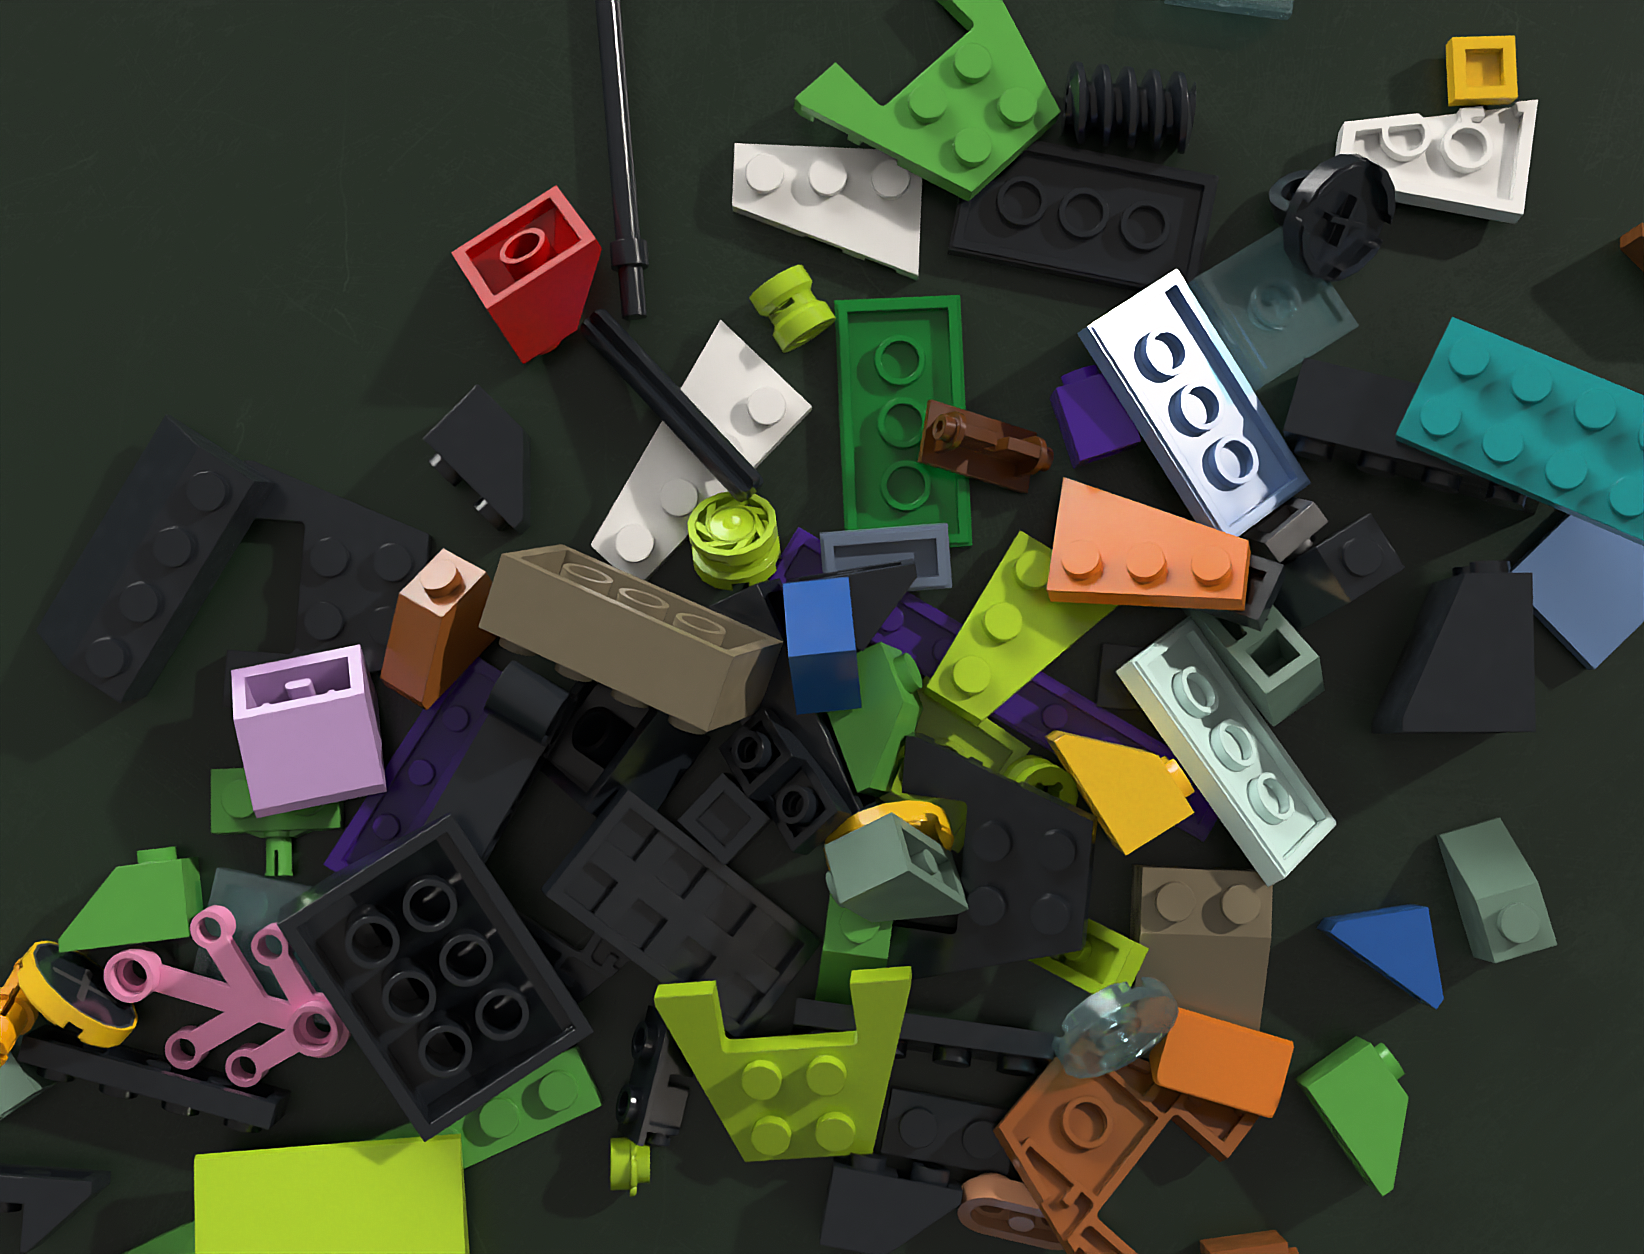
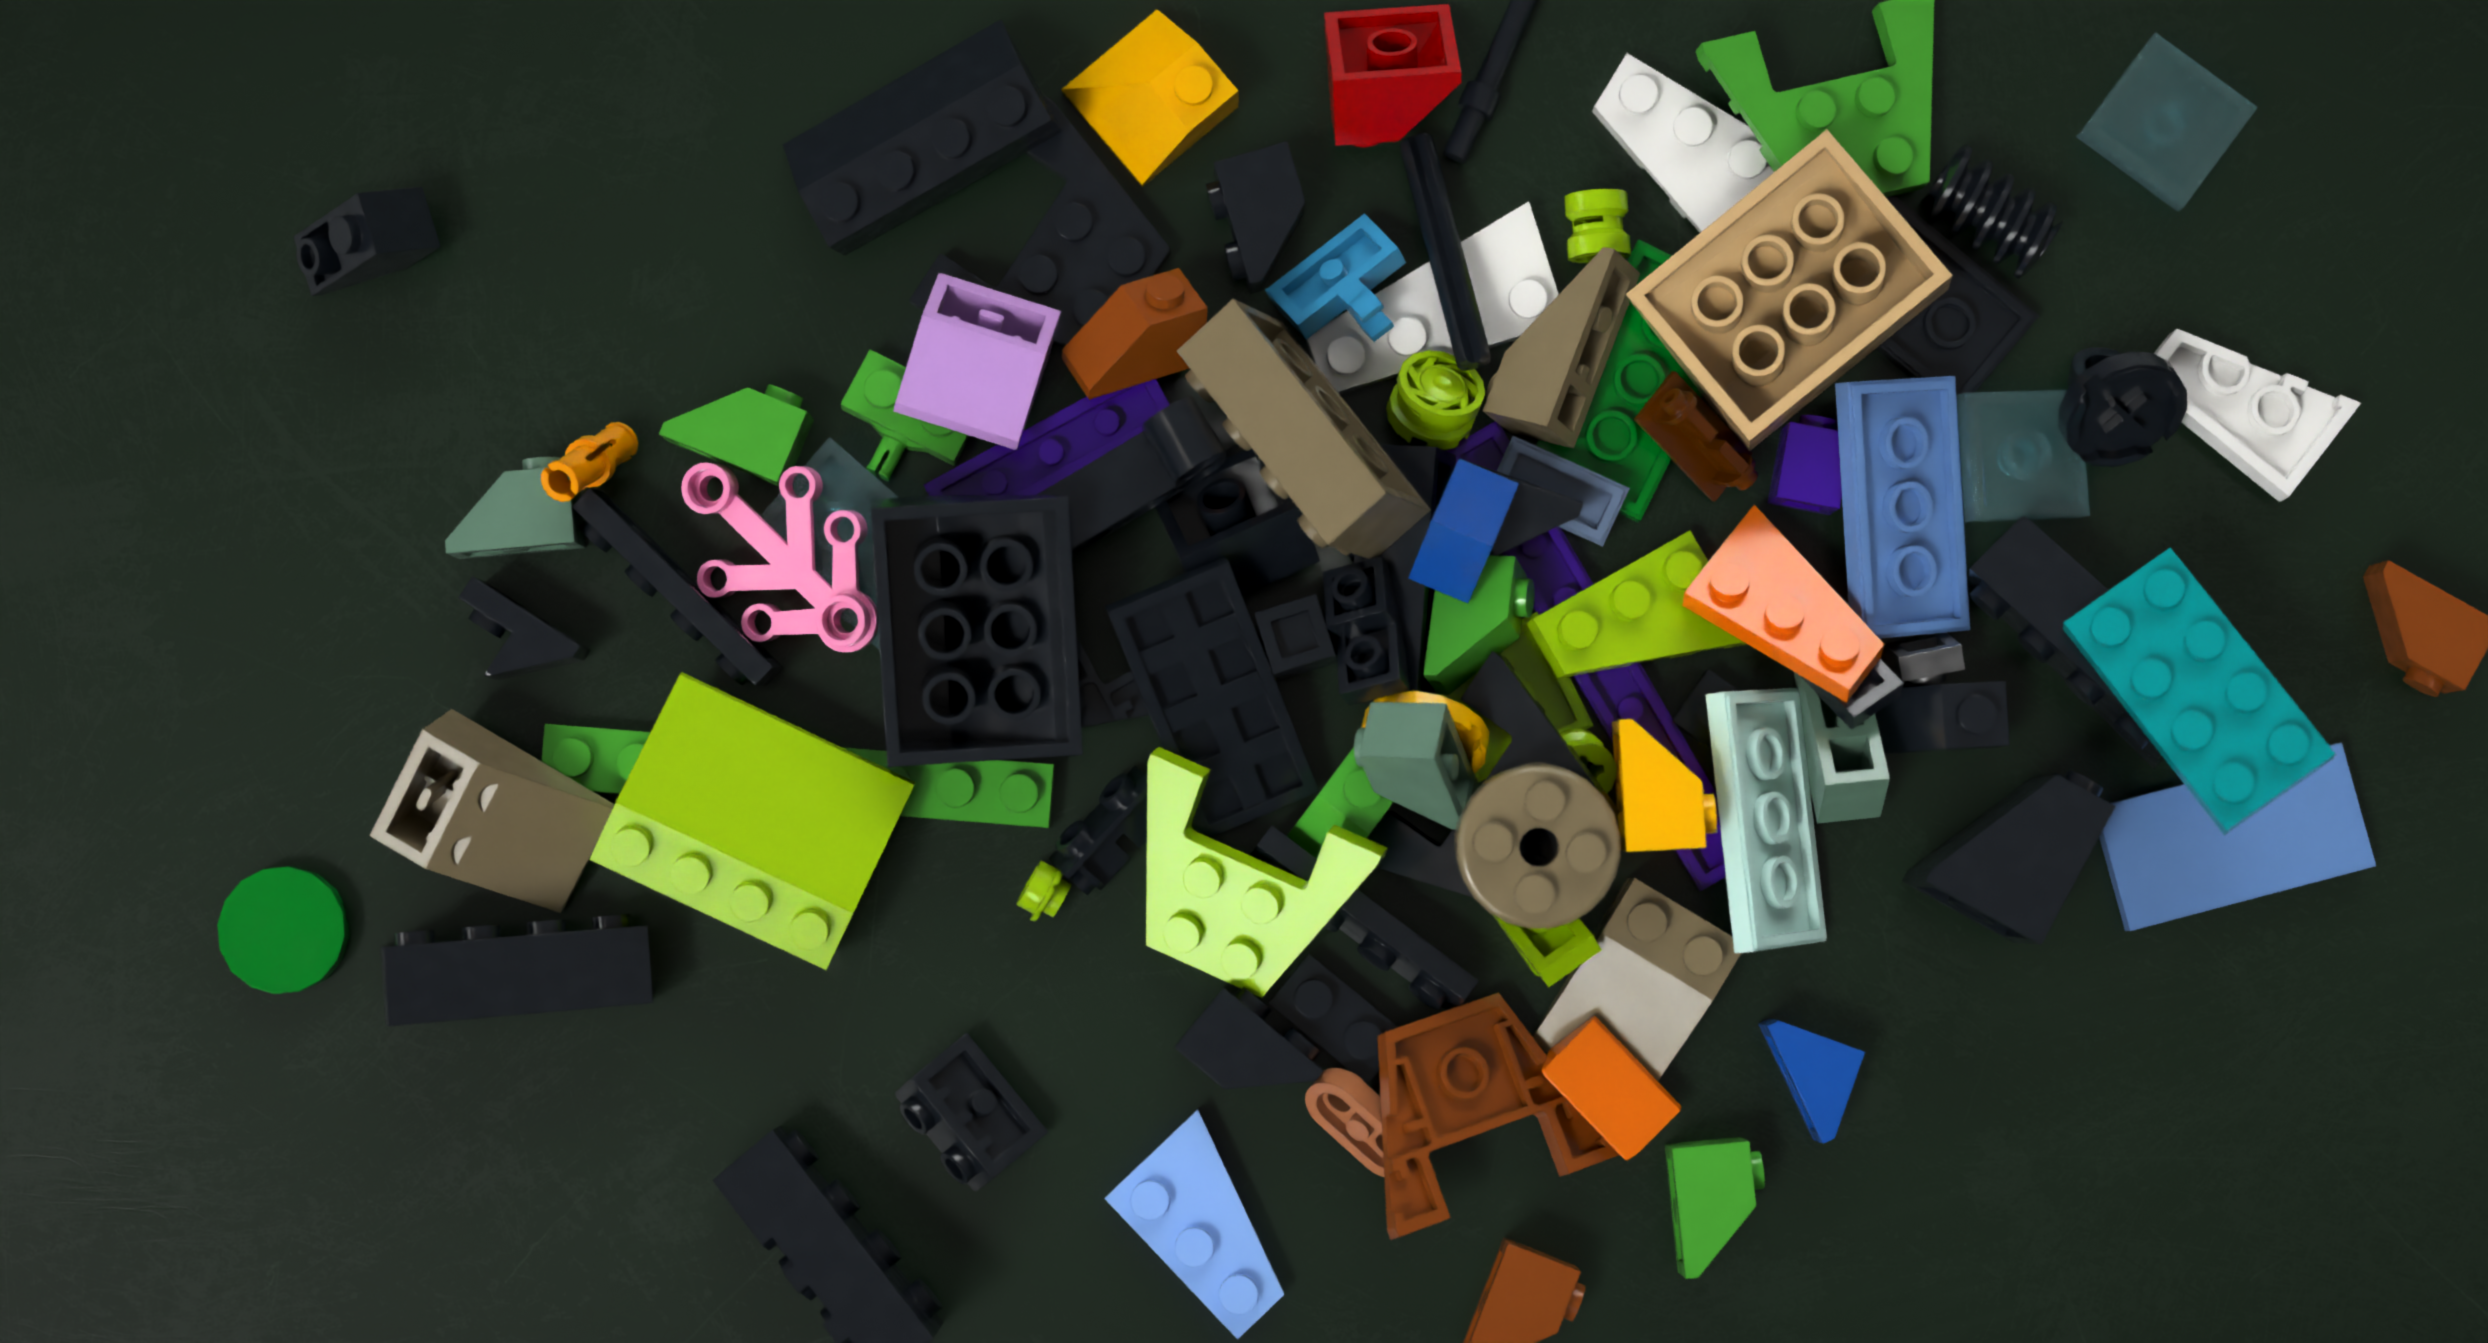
camera: 30 degrees right, 0 degrees up
(73, 990) = (653, 476): tile -> none
(340, 408) = (1152, 96): none -> yellow slope
(592, 479) = (1340, 279): none -> dark azure plate
(823, 444) = (1559, 359): none -> dark tan slope
(991, 272) = (1789, 289): none -> tan slope
(1014, 853) = (1526, 799): none -> dark tan plate
(1115, 1027) = (1534, 1001): clear light blue tile -> none
(1481, 70) = (2325, 350): yellow plate -> none
(1495, 892) = (1932, 1074): sand green slope -> none

